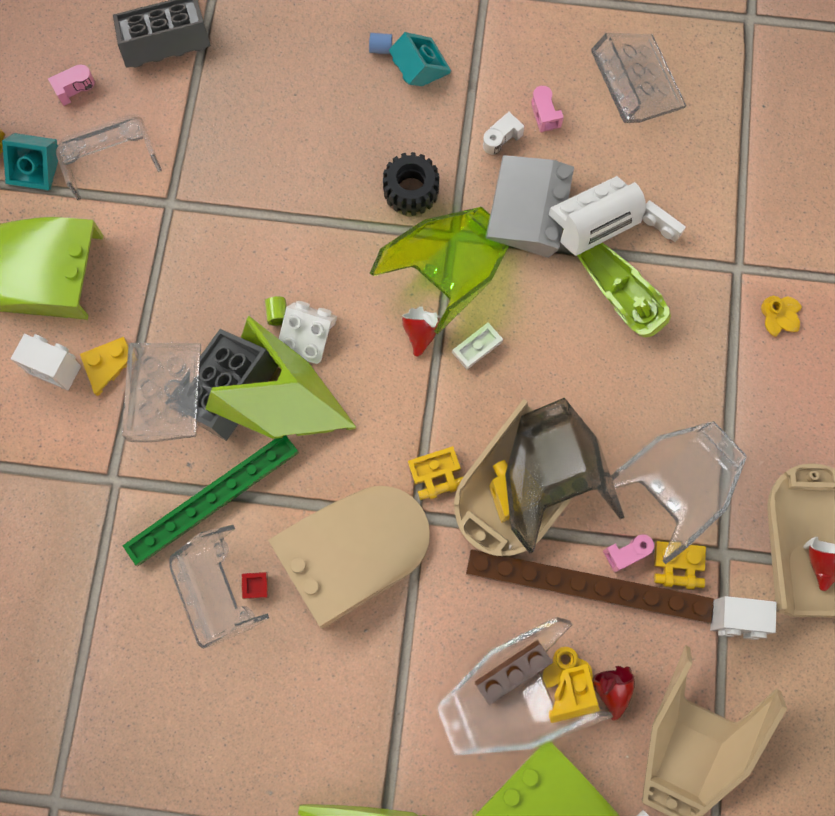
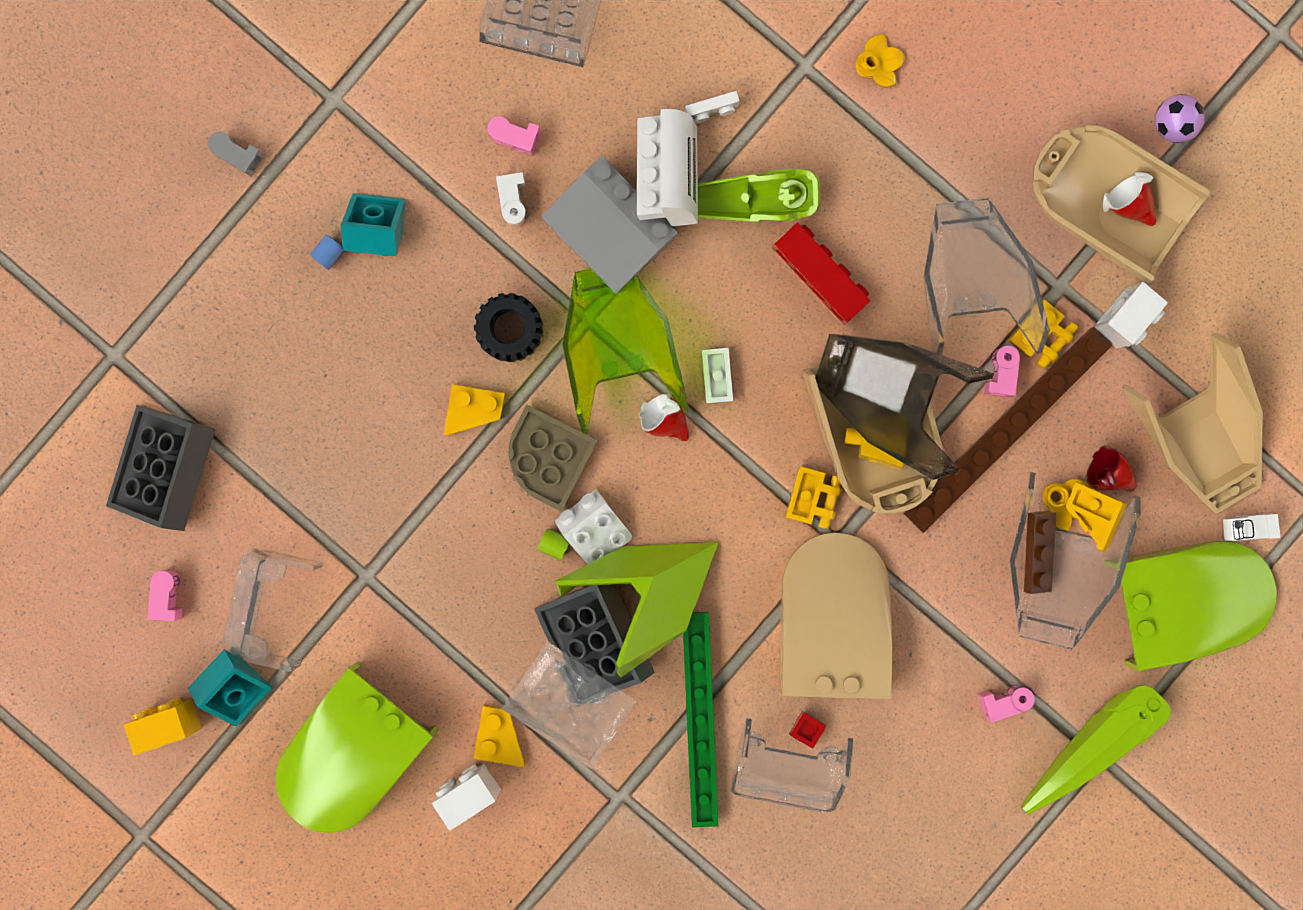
camera: 60 degrees left, 15 degrees up
(337, 198) = (472, 408): none -> yellow wing
(337, 268) = (548, 456): none -> dark tan plate
(385, 738) = (1006, 704): none -> bright pink leg
(603, 370) = (821, 273): none -> red brick

